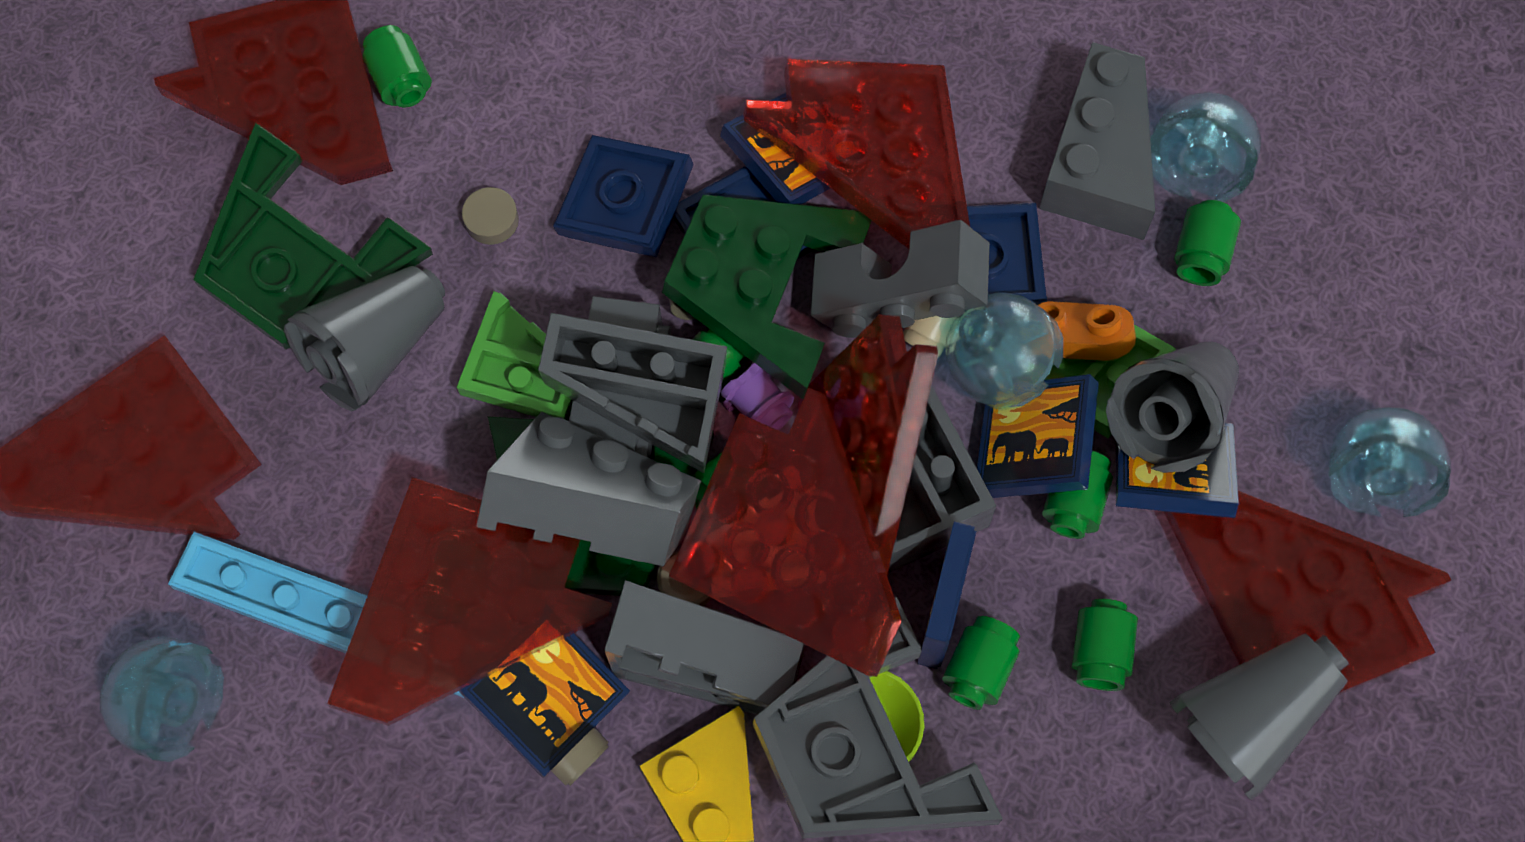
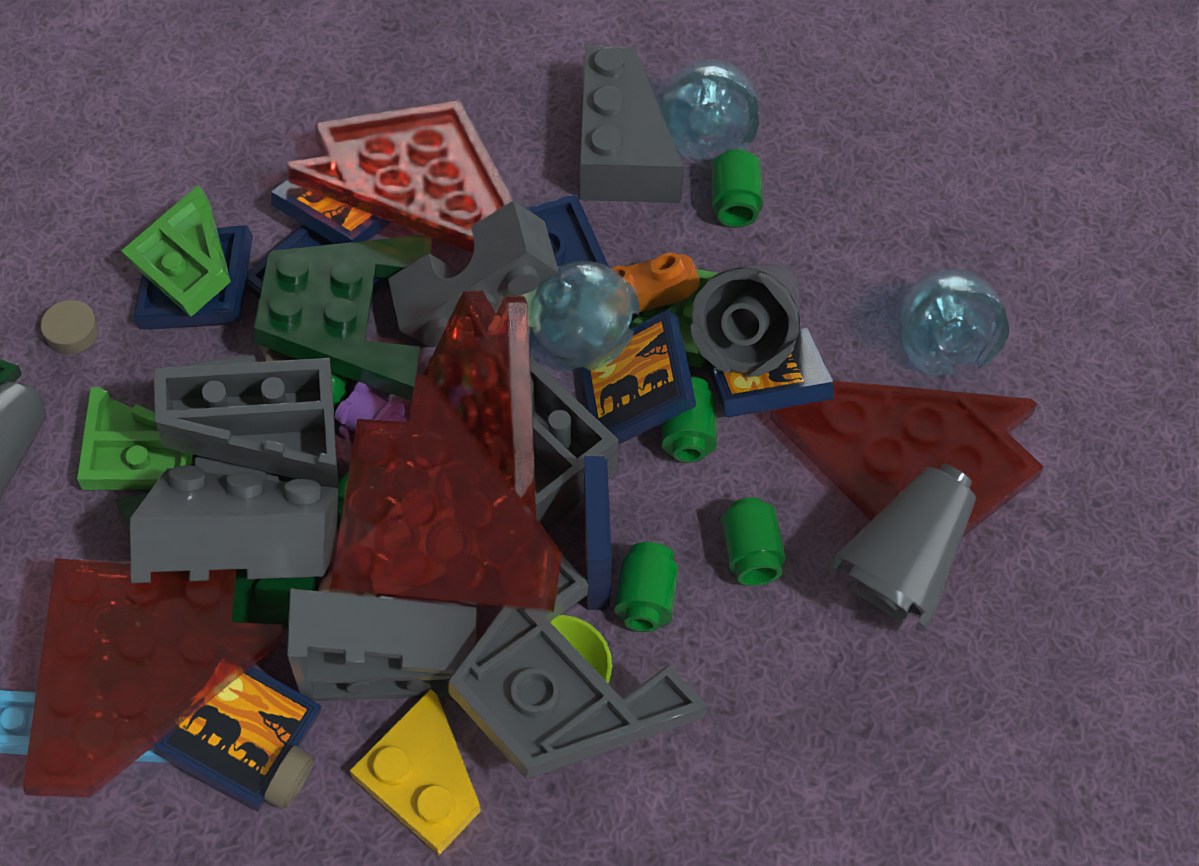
camera: 20 degrees left, 10 degrees down
(618, 172) = (183, 253): none -> bright green wing

